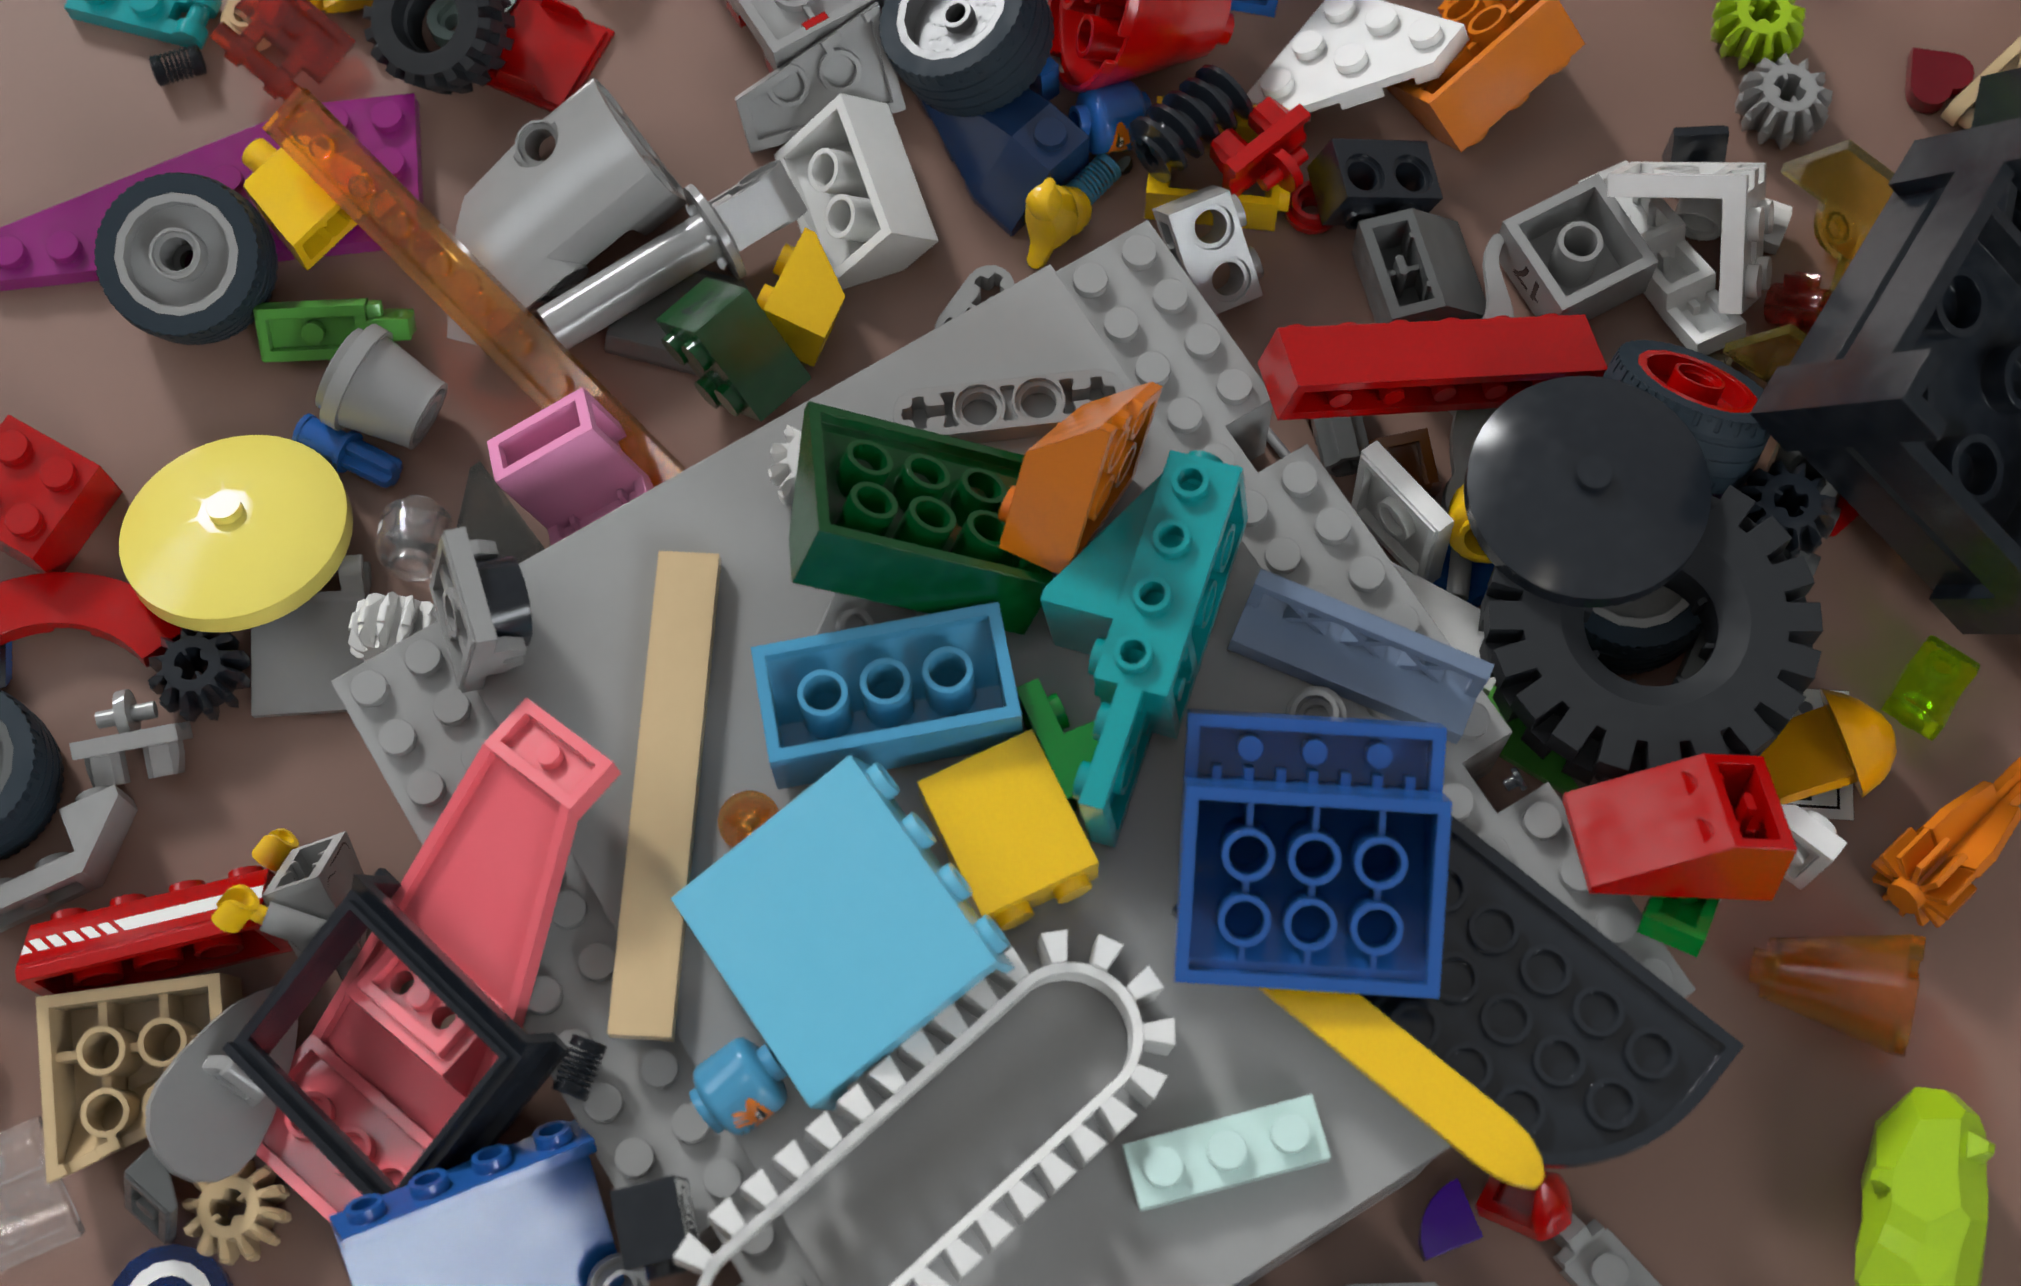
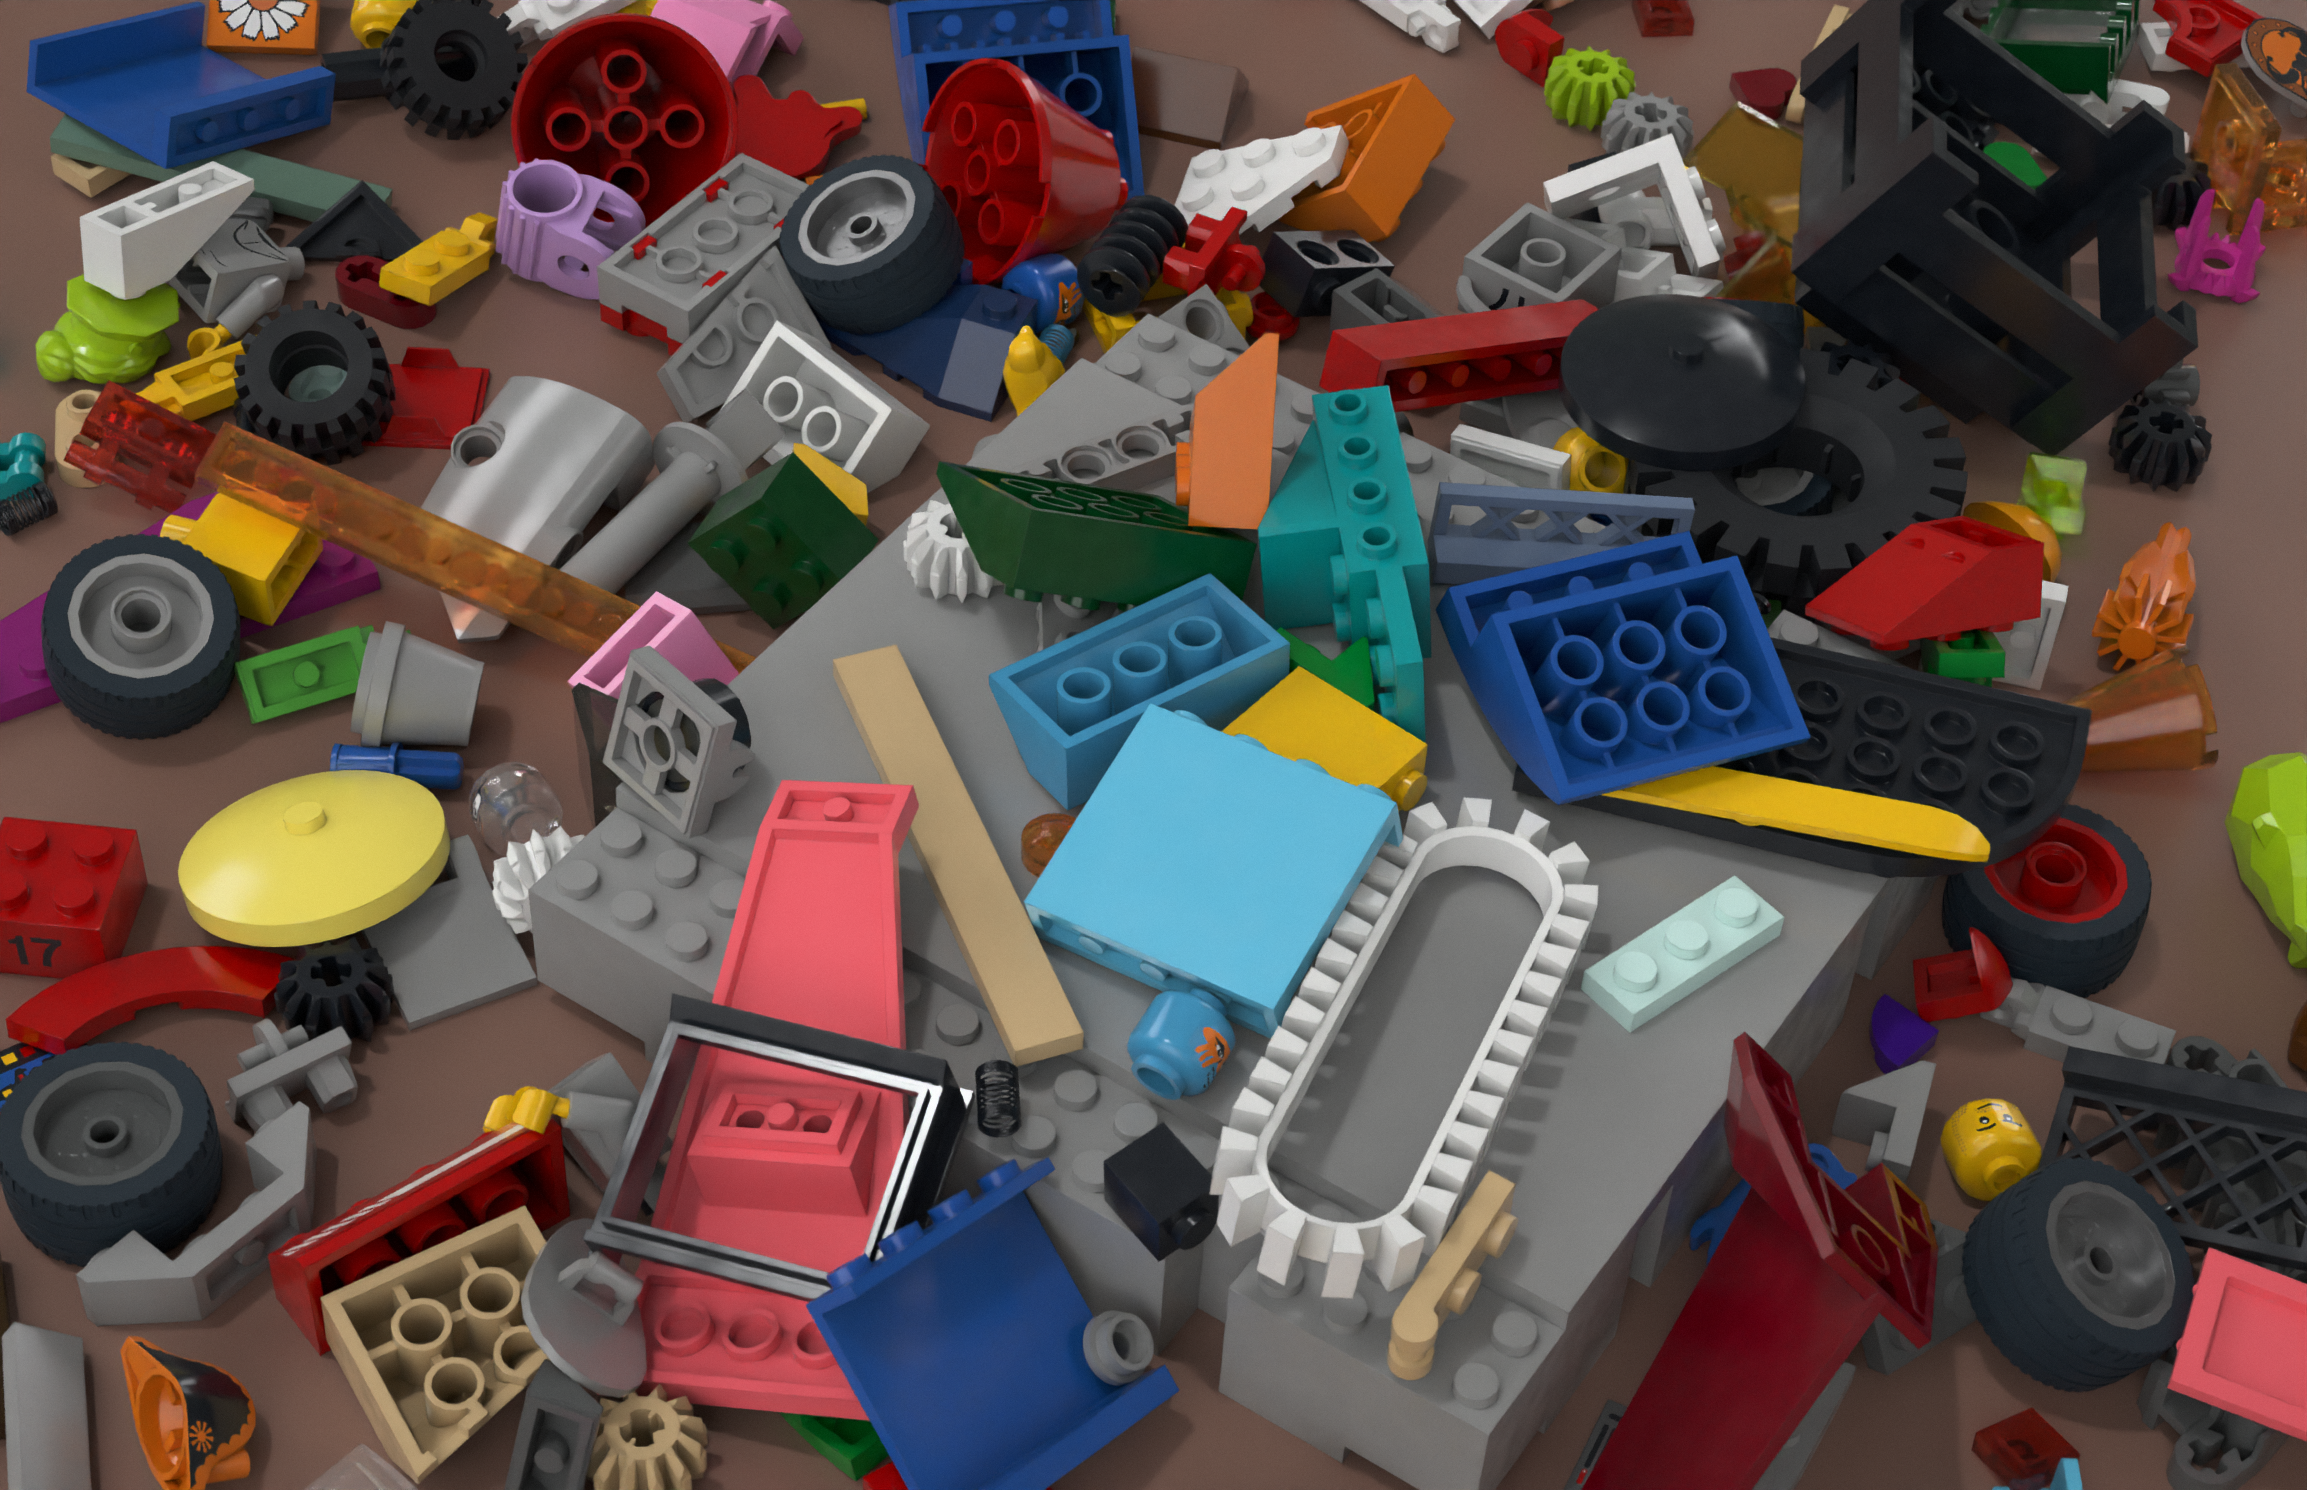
camera: 30 degrees left, 25 degrees down
(1685, 1188) = (2061, 907): none -> black wheel

